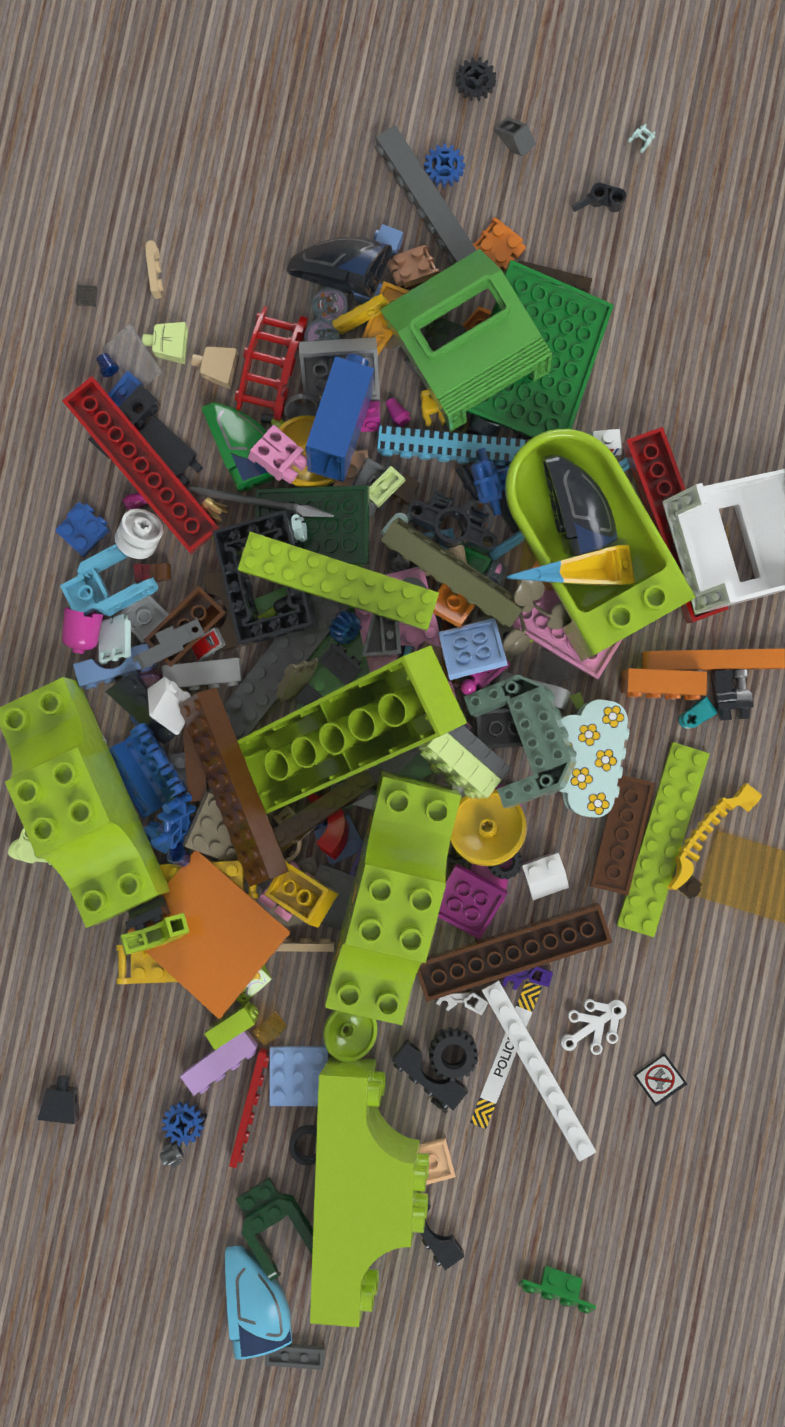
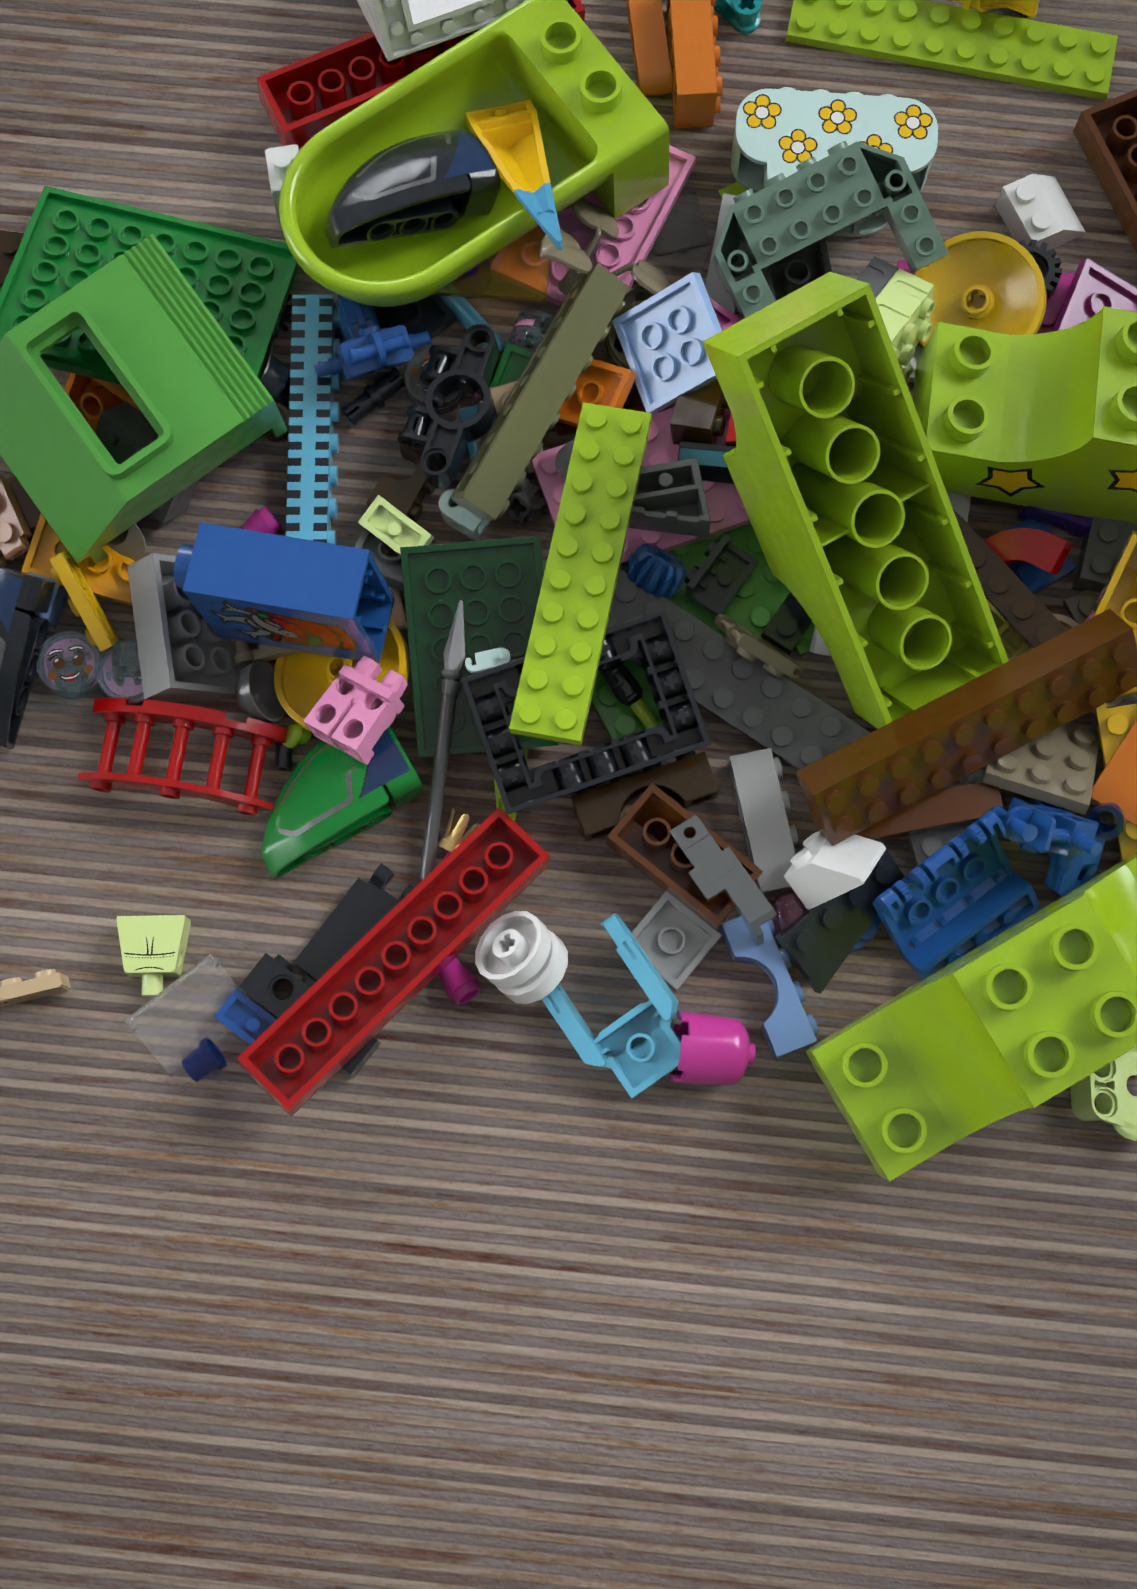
camera: 100 degrees left, 10 degrees down
(82, 529) = (518, 1074): blue plate -> none
(86, 295) = (72, 1115): clear smoke tile -> none
(115, 639) = (720, 984): light aqua plate -> none
(158, 571) = (588, 934): leg -> none
(208, 645) = (712, 811): slope -> none
(217, 365) = (192, 854): tan torso -> none
(429, 407) = (240, 474): yellow animal -> none
(622, 836) = (966, 98): reddish brown plate -> none

